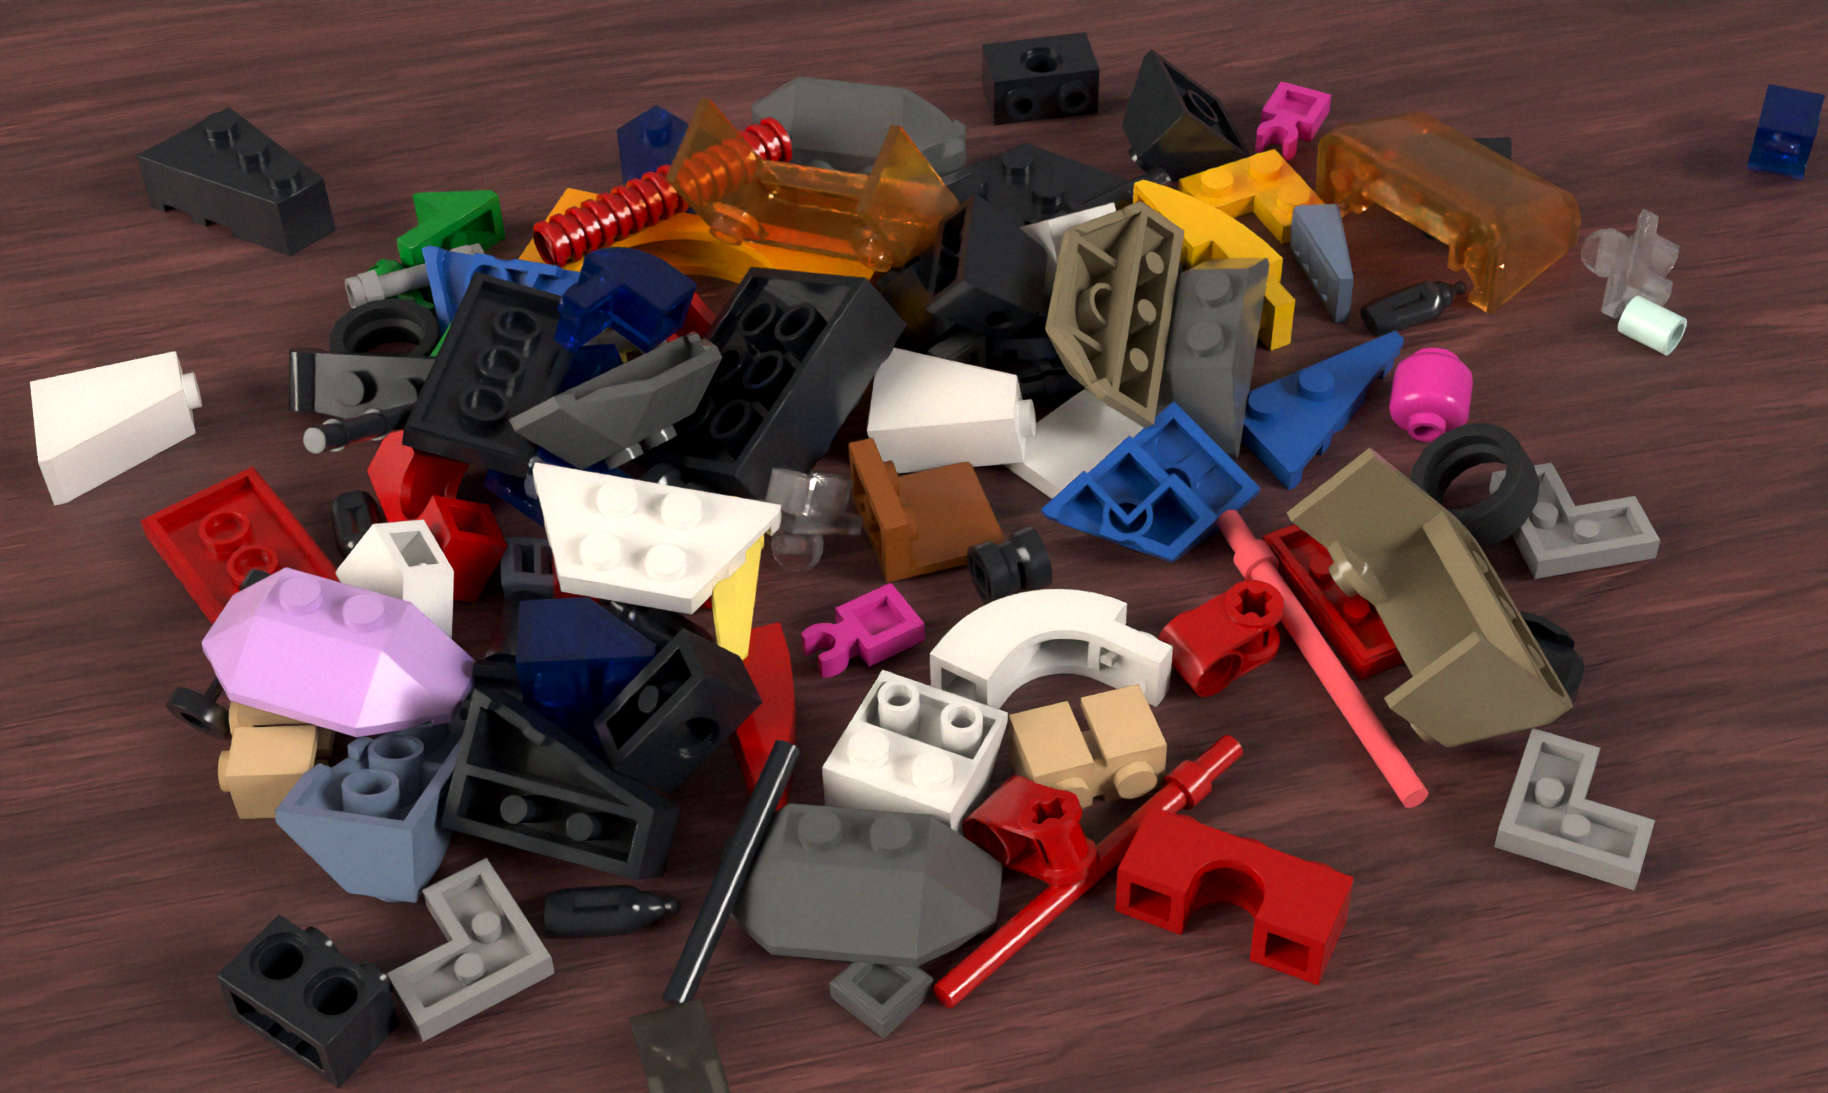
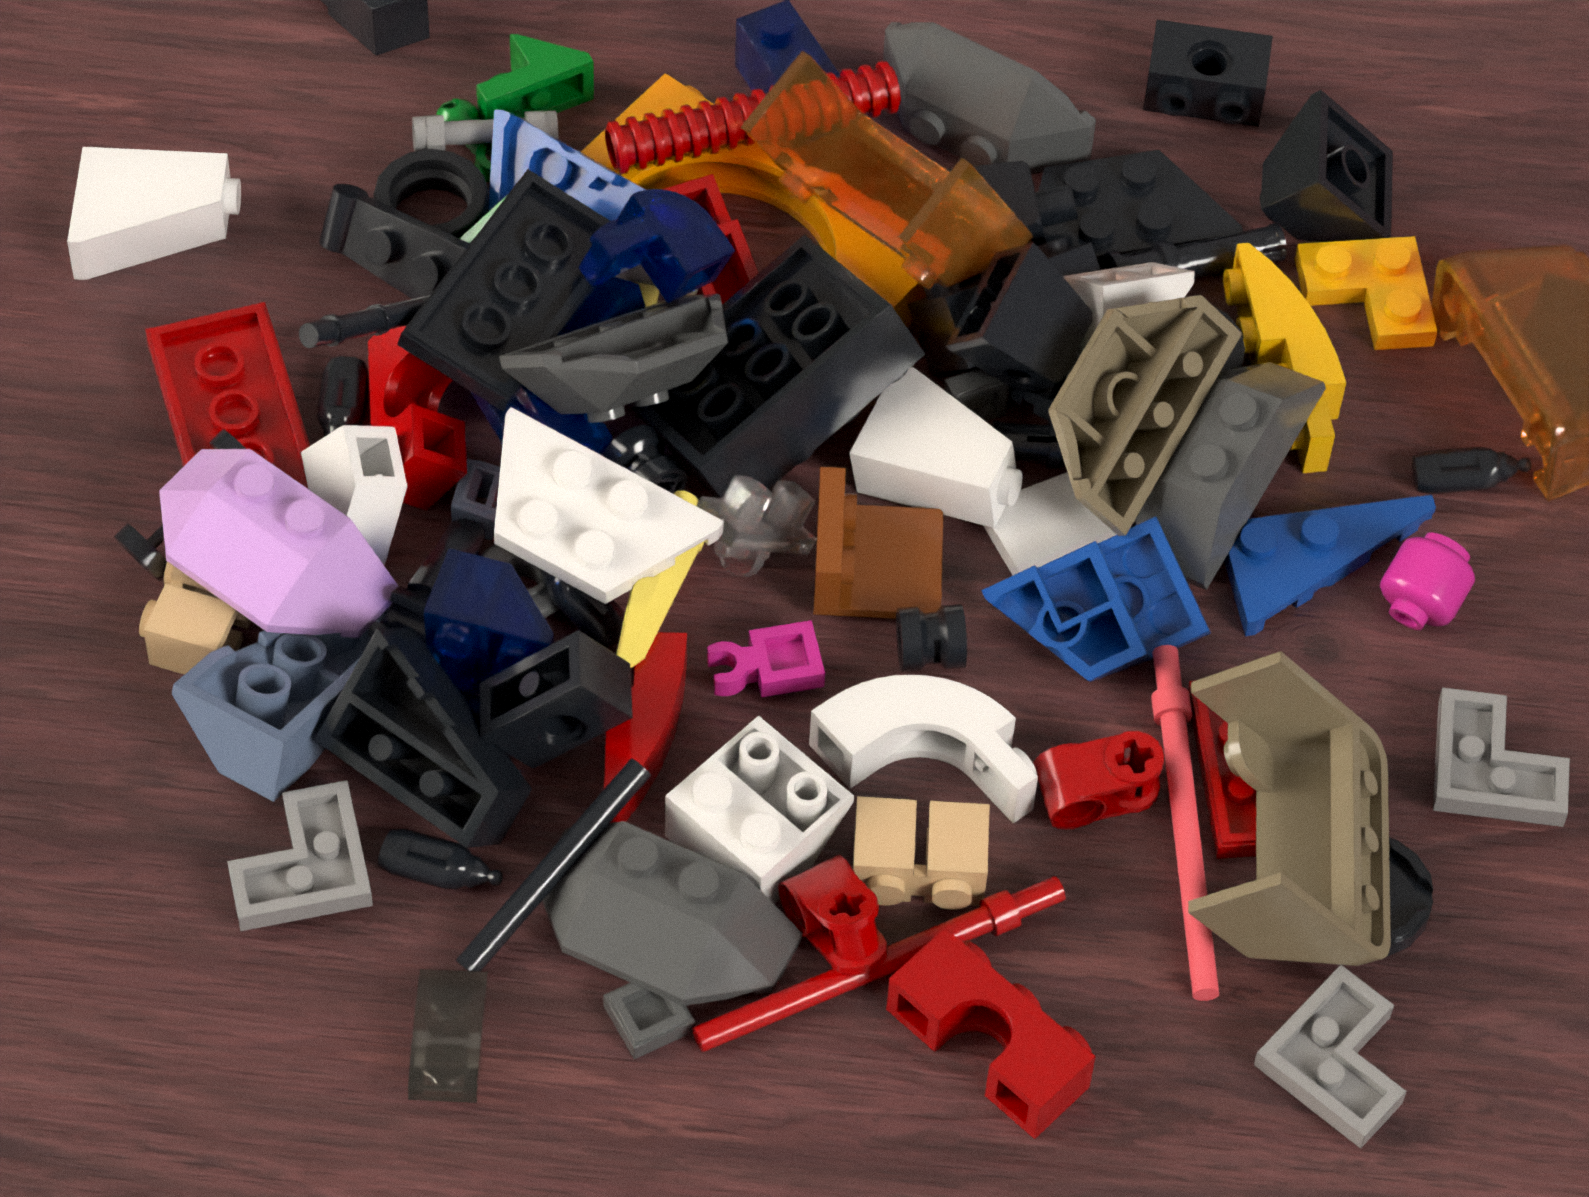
camera: 15 degrees right, 10 degrees up
(292, 987) = (146, 867): black brick -> none
(1291, 115) = (1453, 199): dark pink plate -> none
(1323, 255) = (1402, 373): sand blue slope -> none
(1468, 447) = (1440, 724): black tyre -> none

